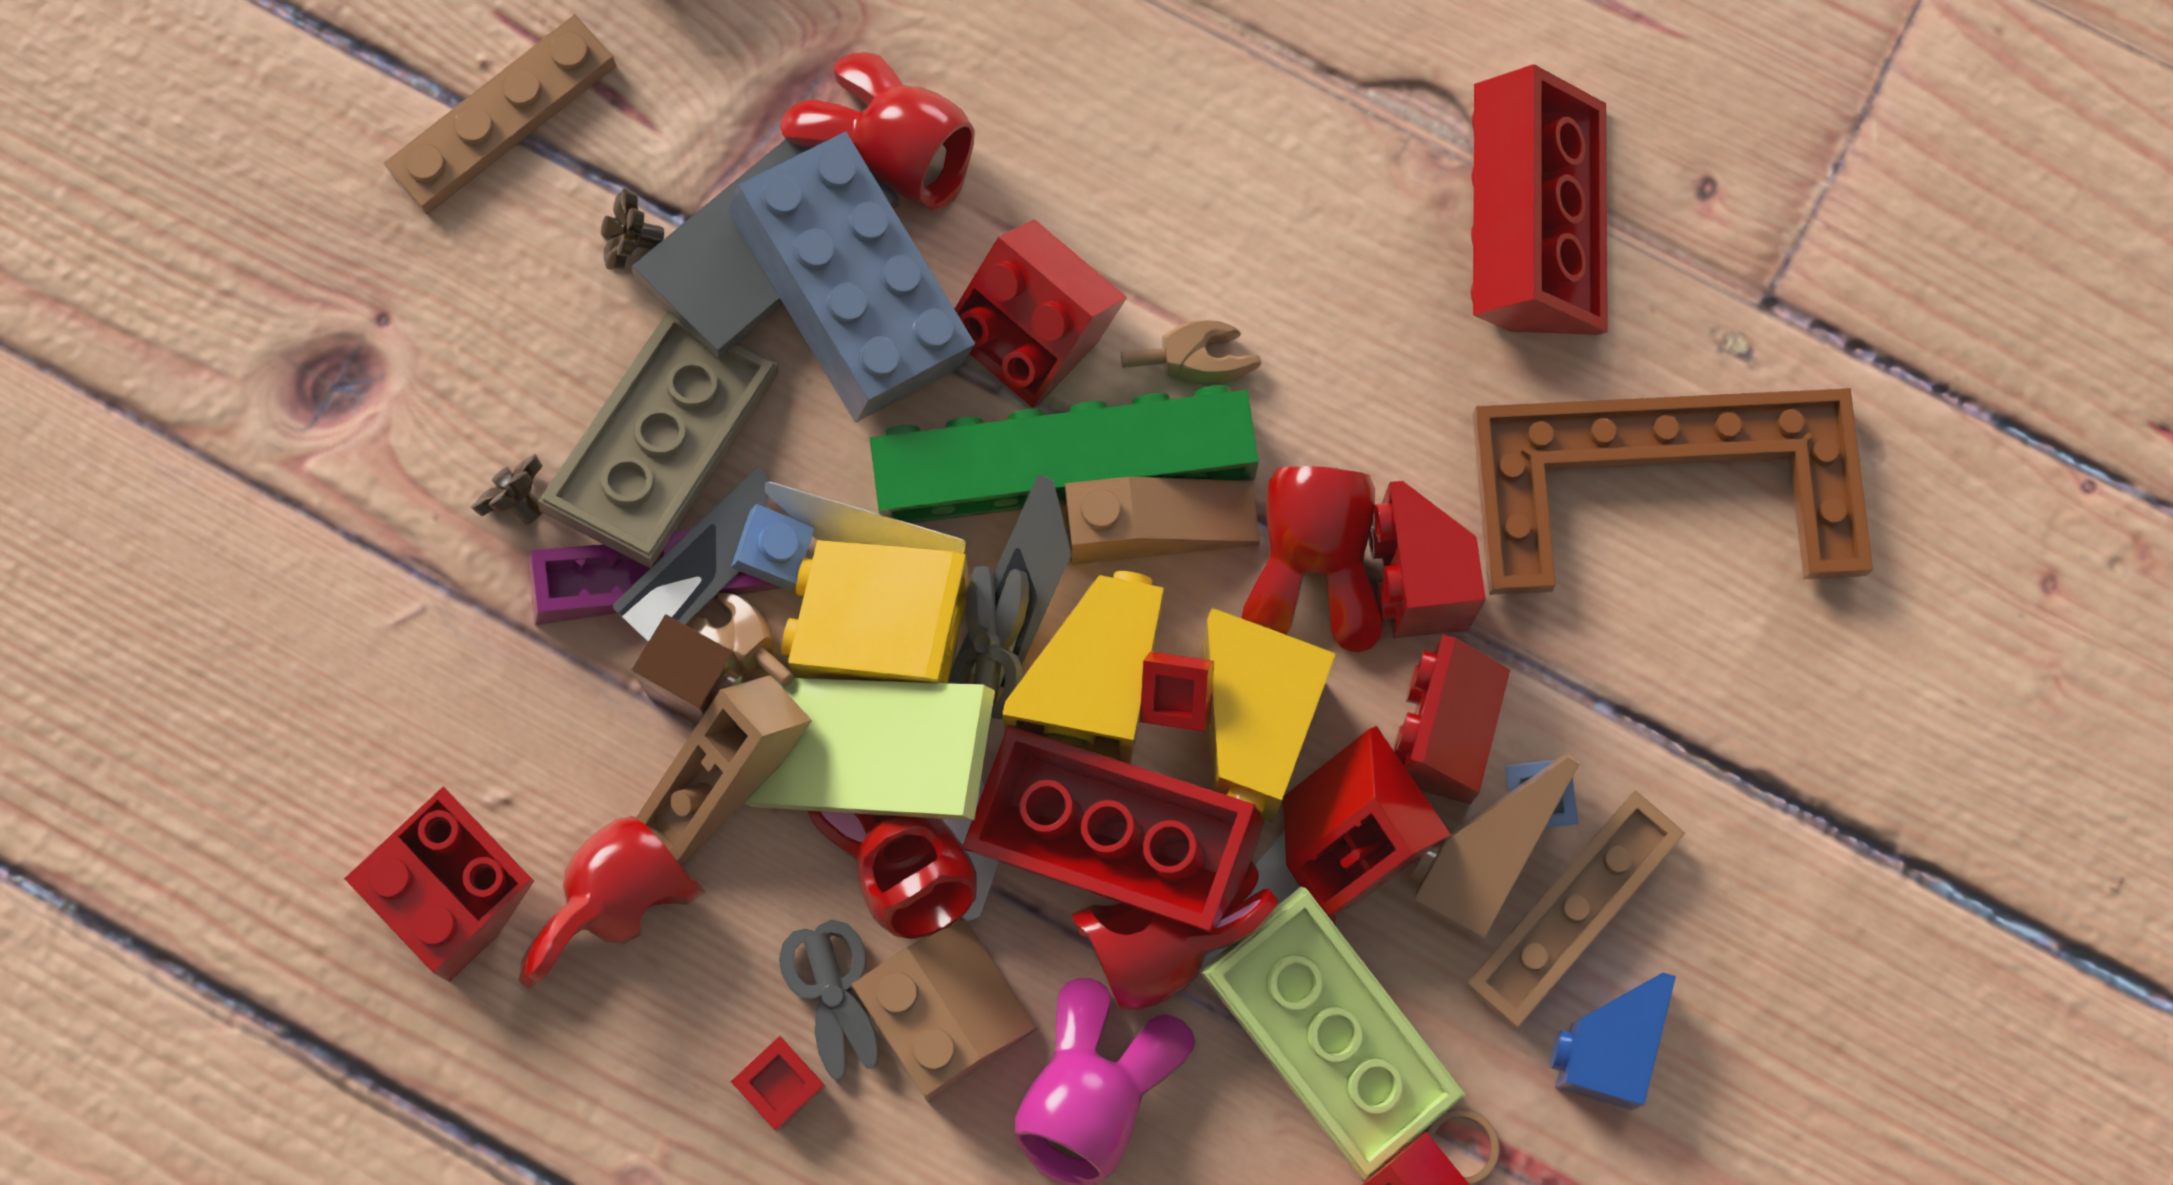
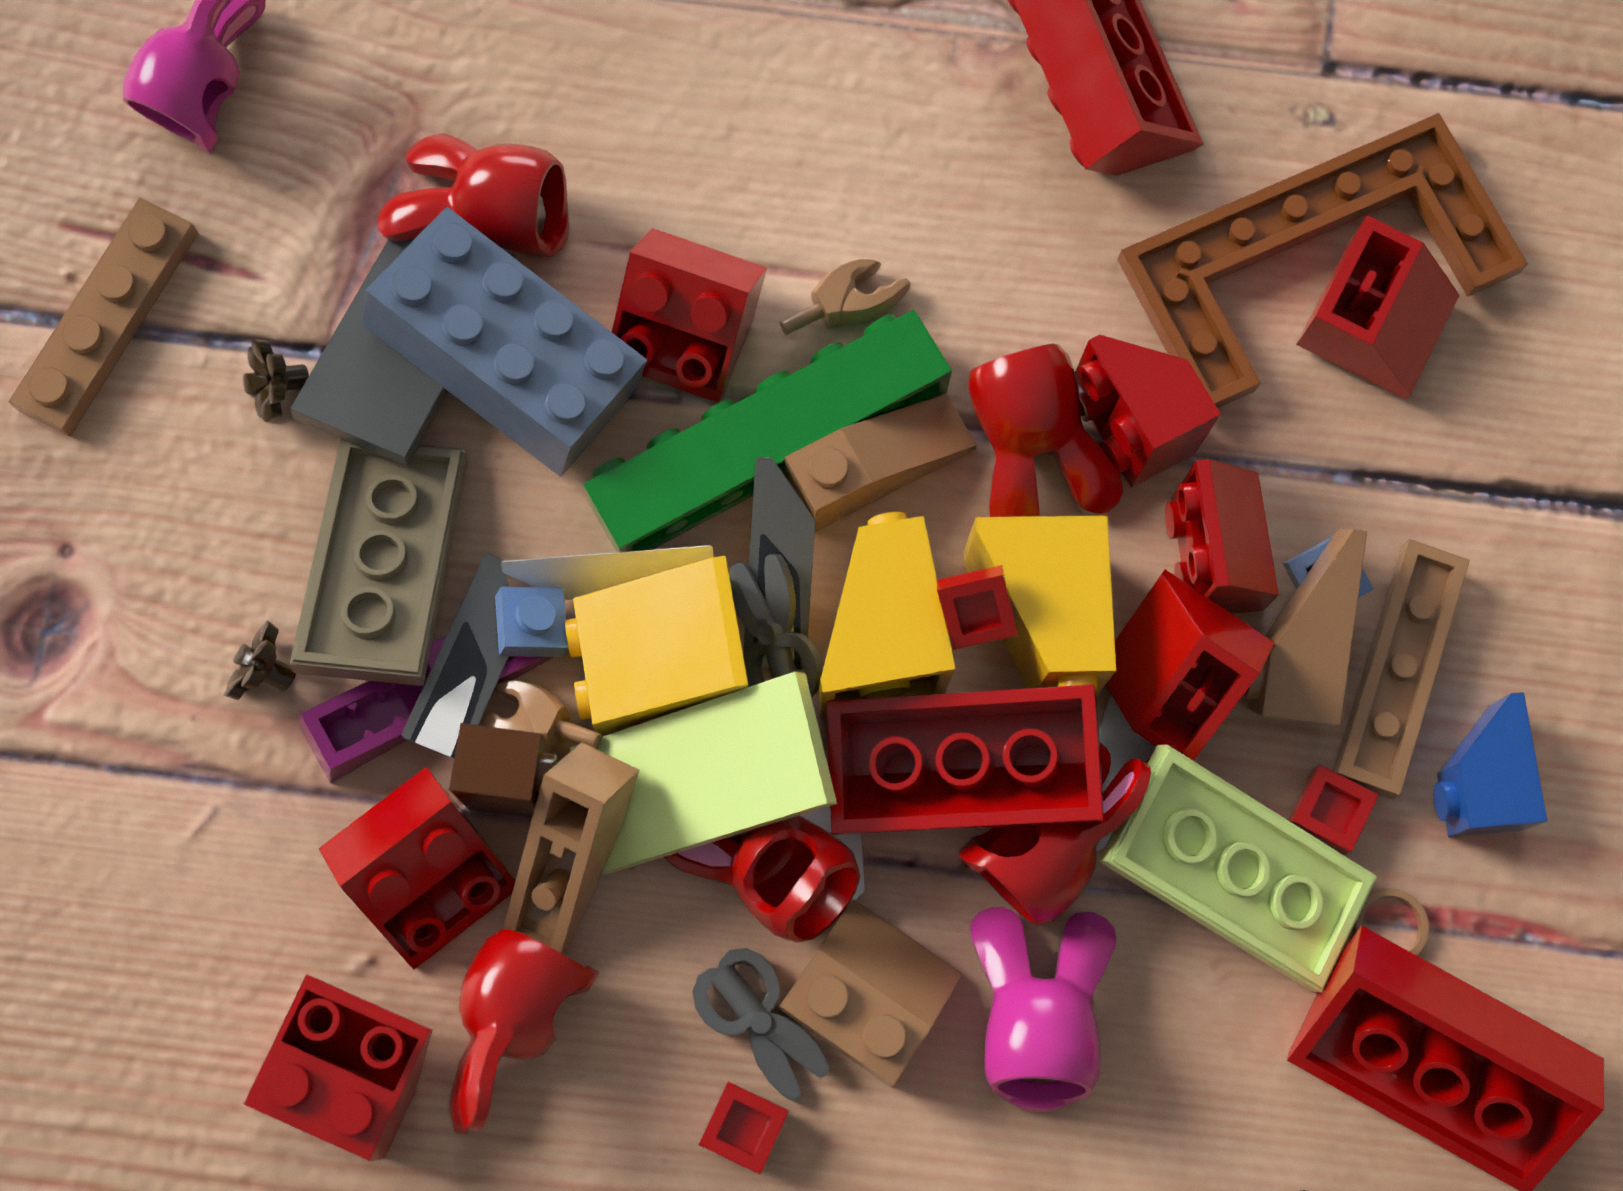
camera: 25 degrees left, 0 degrees up
(581, 732) = (418, 868): none -> red slope
(1449, 1015) = (1333, 809): none -> red plate
(1706, 559) = (1381, 308): none -> red slope

